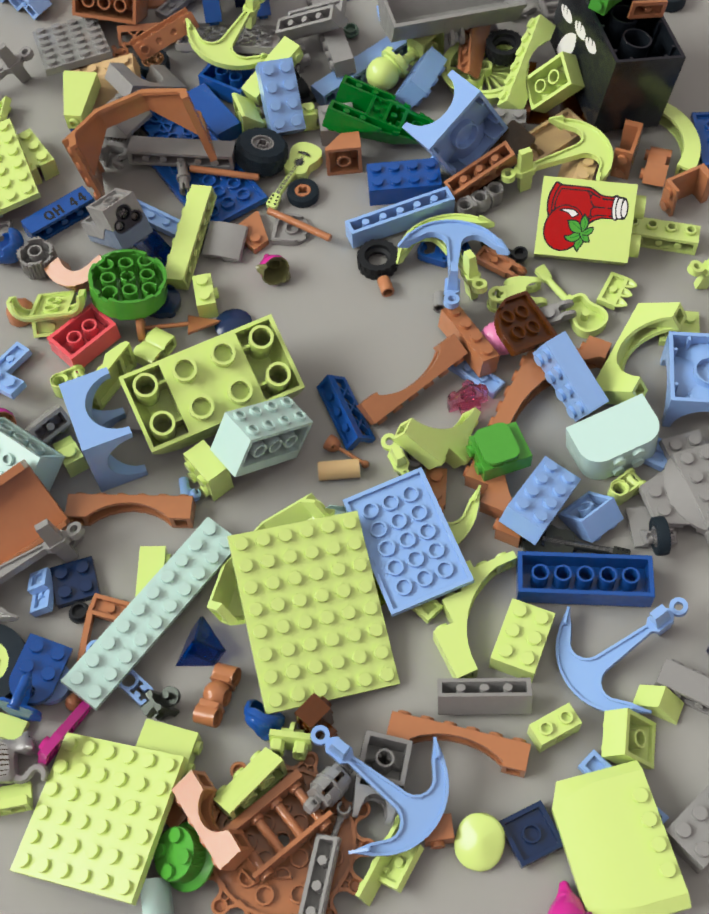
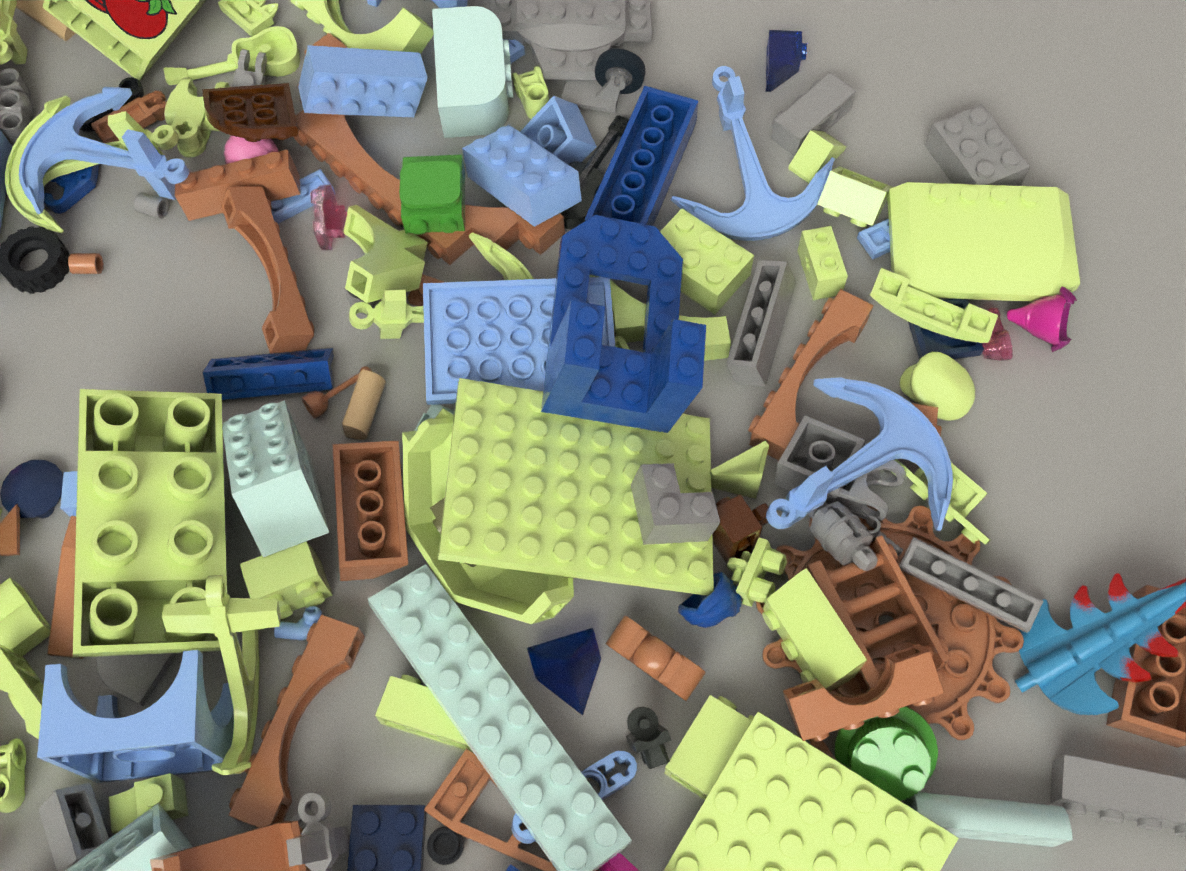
camera: 75 degrees left, 5 degrees up
(132, 474) = (224, 618): none -> yellowish green piece
(265, 495) = (369, 509): none -> nougat slope
(301, 665) = (668, 514): none -> light grey brick
(365, 716) = (741, 473): none -> yellowish green slope
(383, 598) = (613, 382): none -> blue bracket
(533, 879) = (1000, 344): none -> clear pink bar
(537, 815) = (930, 312): none -> yellowish green slope

